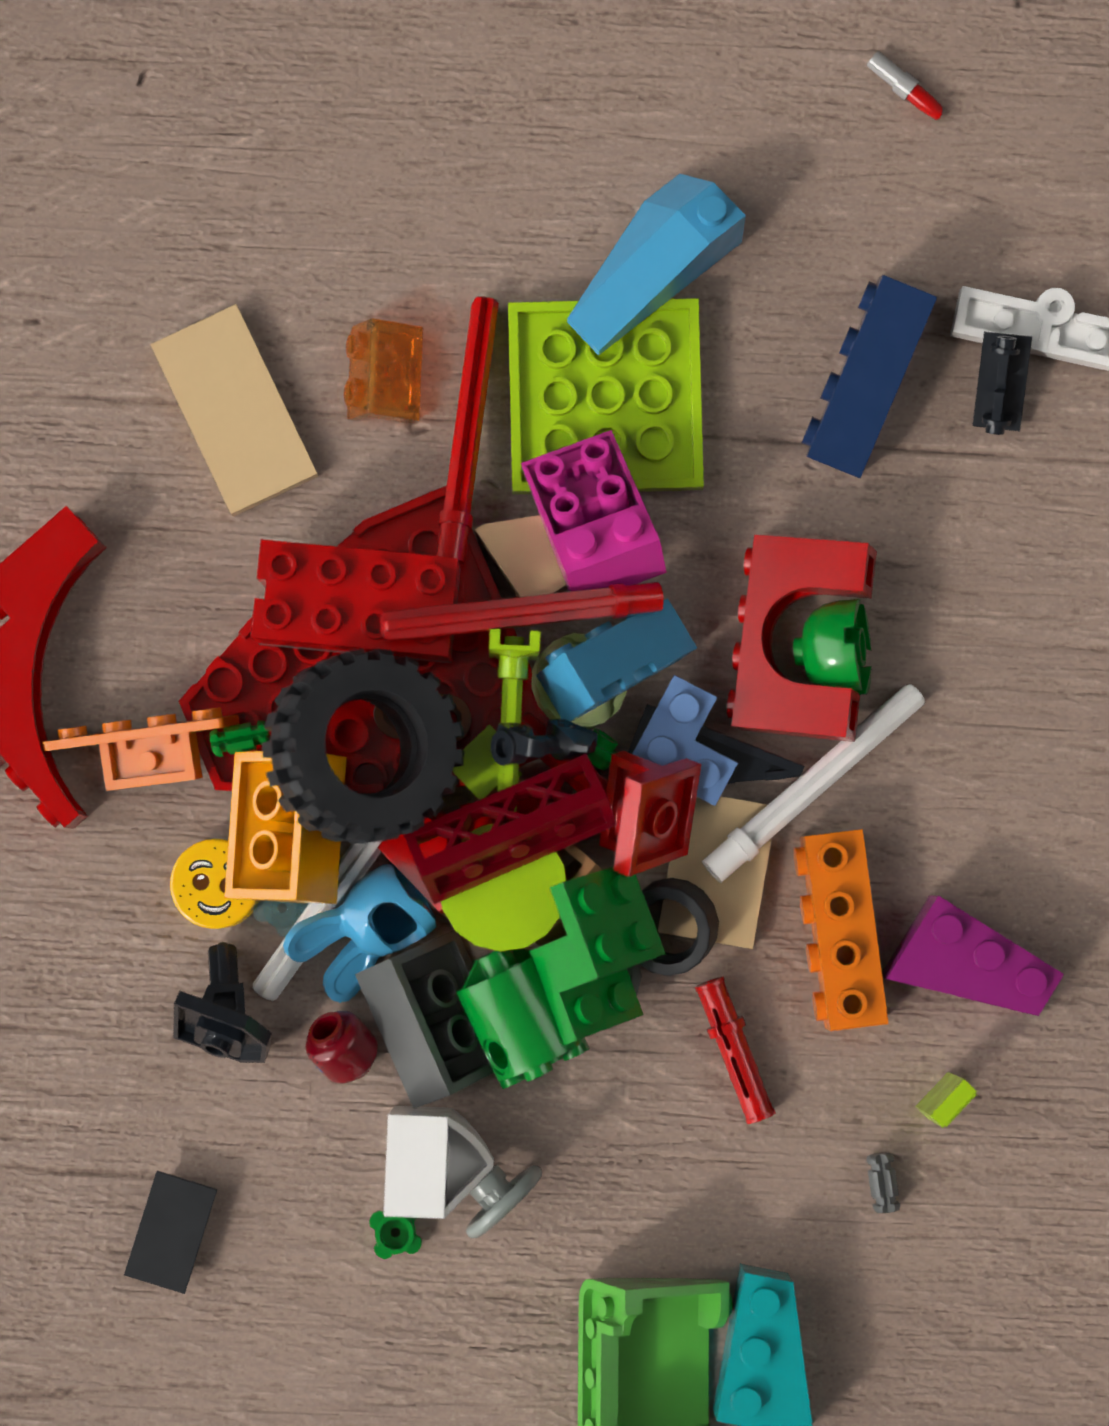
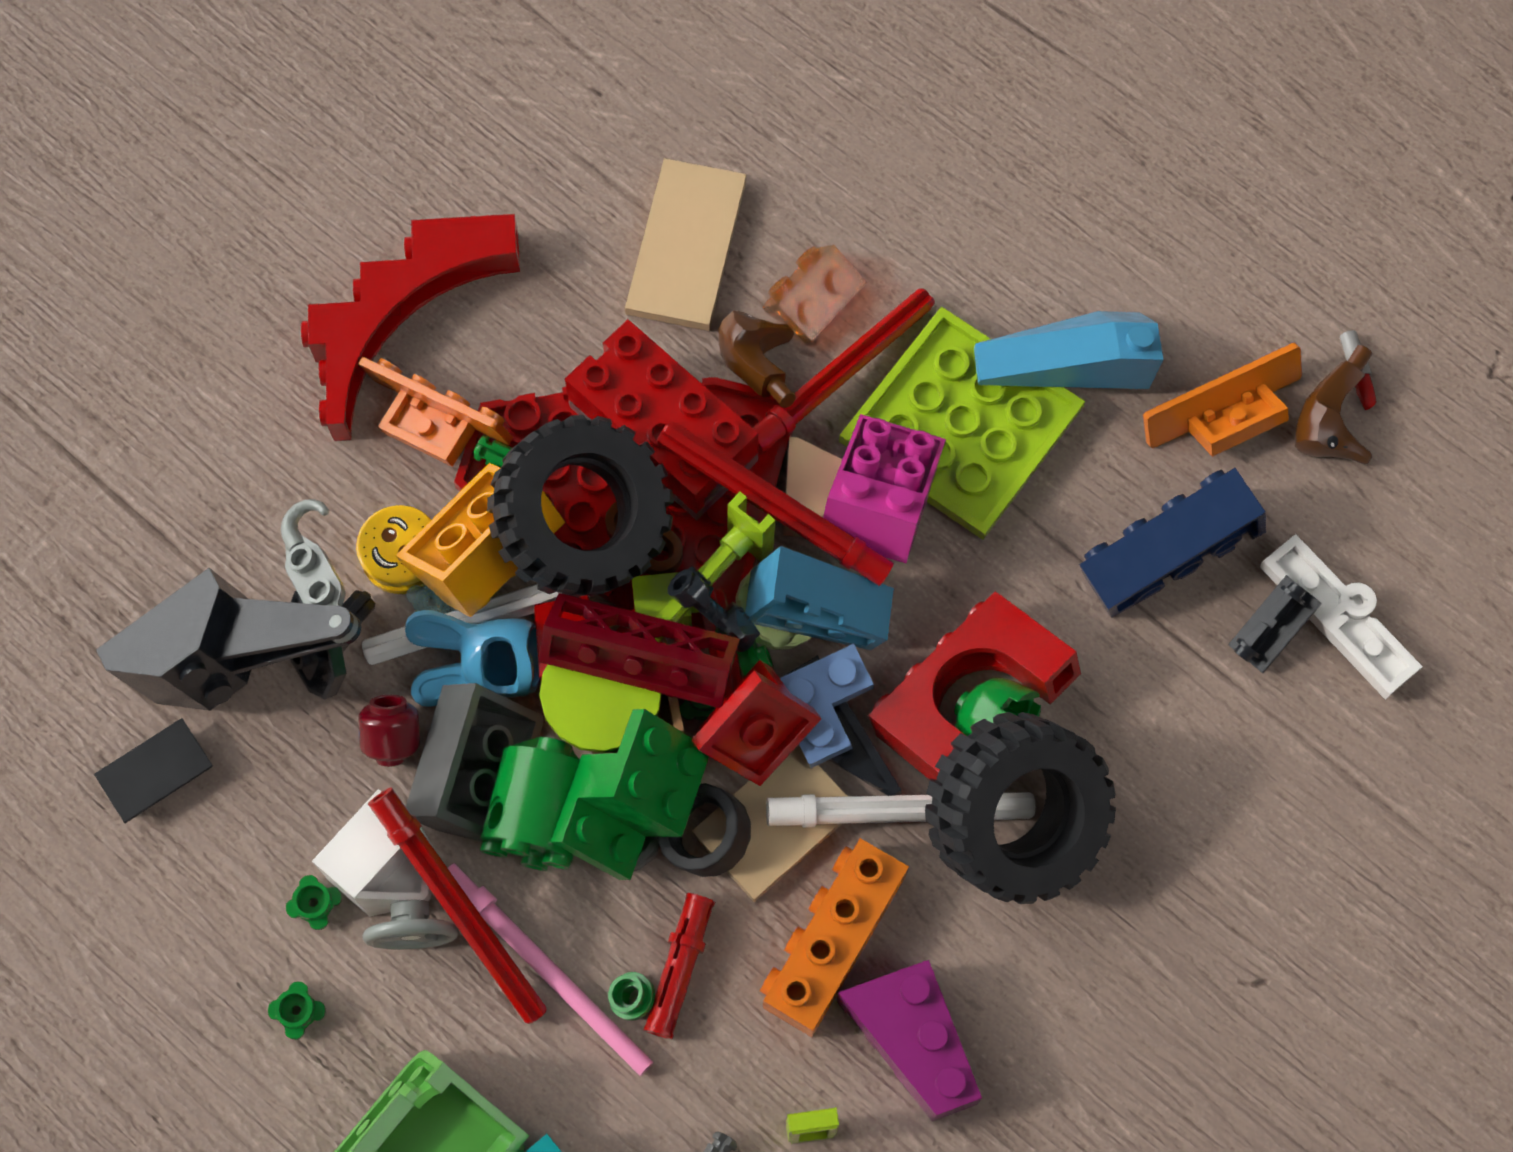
camera: 40 degrees right, 15 degrees down
(137, 1084) = (211, 636): none -> slope
(361, 471) = (743, 346): none -> reddish brown animal
(445, 1135) = (405, 831): none -> red axle
(445, 1338) = (296, 996): none -> green plate
(533, 1126) = (552, 974): none -> bright pink bar
(705, 1110) = (621, 990): none -> green plate
(826, 208) = (1230, 406): none -> orange bracket
(910, 165) = (1320, 425): none -> reddish brown animal
(966, 724) = (1061, 840): none -> black tyre

